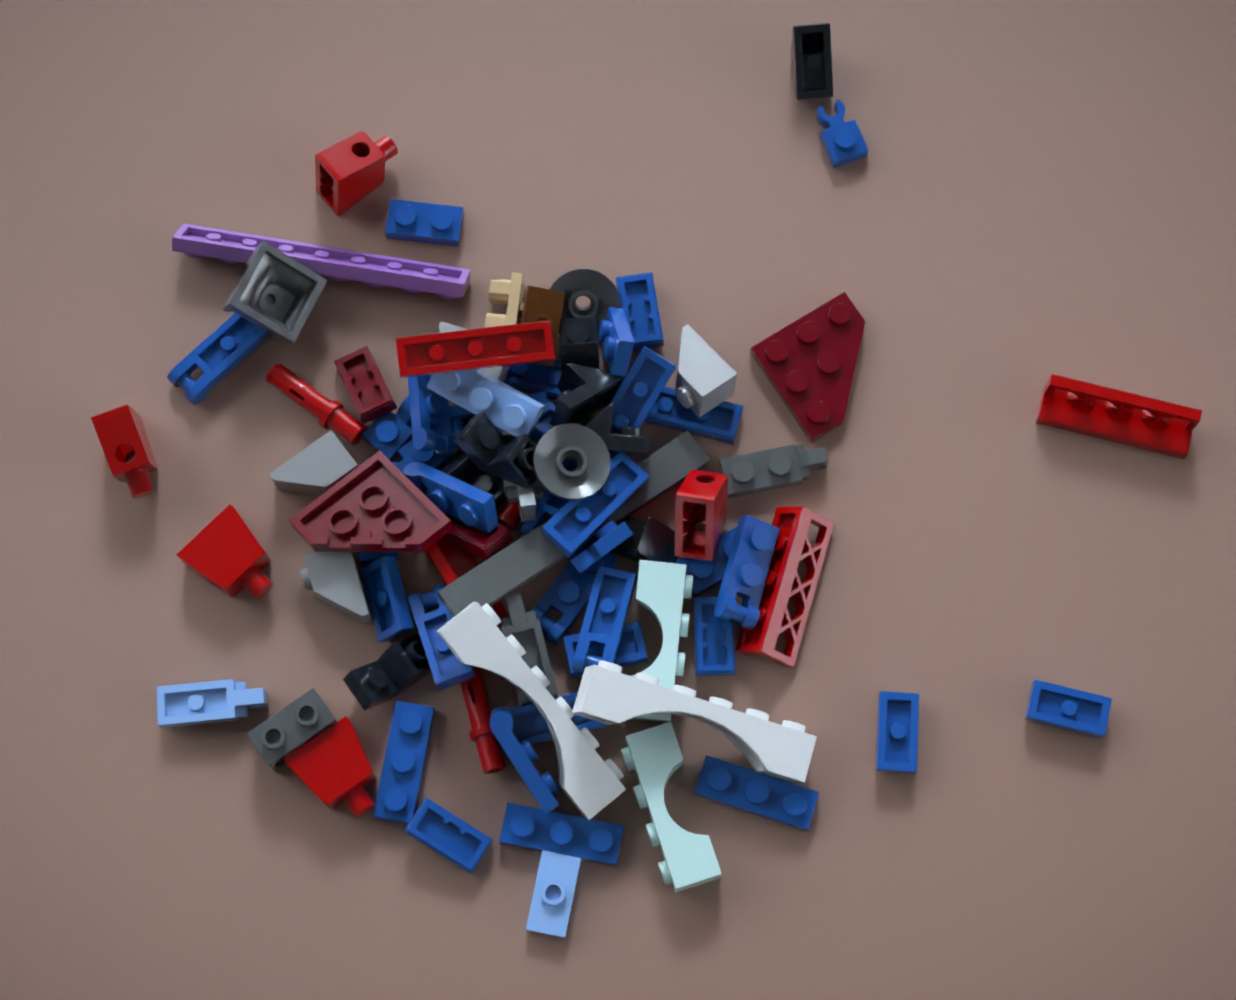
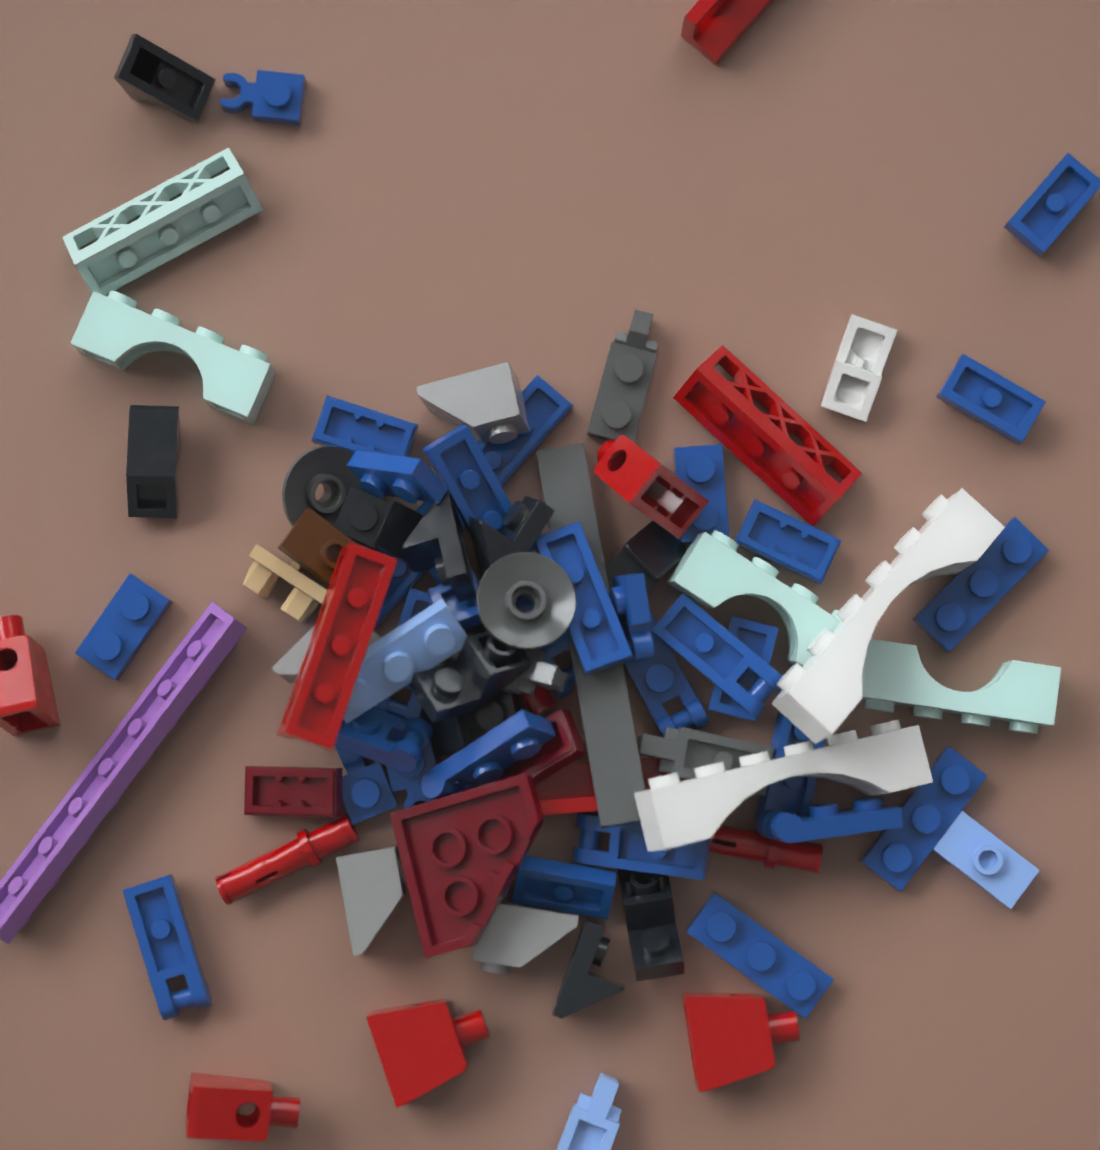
camera: 70 degrees left, 10 degrees up
(276, 293) = (134, 845): flat silver brick -> none
(291, 728) = (667, 1063): dark grey brick -> none
(322, 641) = (579, 985): none -> black slope
(448, 835) = (867, 945): blue plate -> none
(546, 181) = (153, 461): none -> black slope
(623, 123) = (120, 334): none -> light aqua arch
(714, 111) = (164, 225): none -> light aqua fence
(746, 571) = (738, 470): blue plate -> none
(814, 364) = (527, 269): dark red plate -> none
(869, 627) = (858, 367): none -> white slope

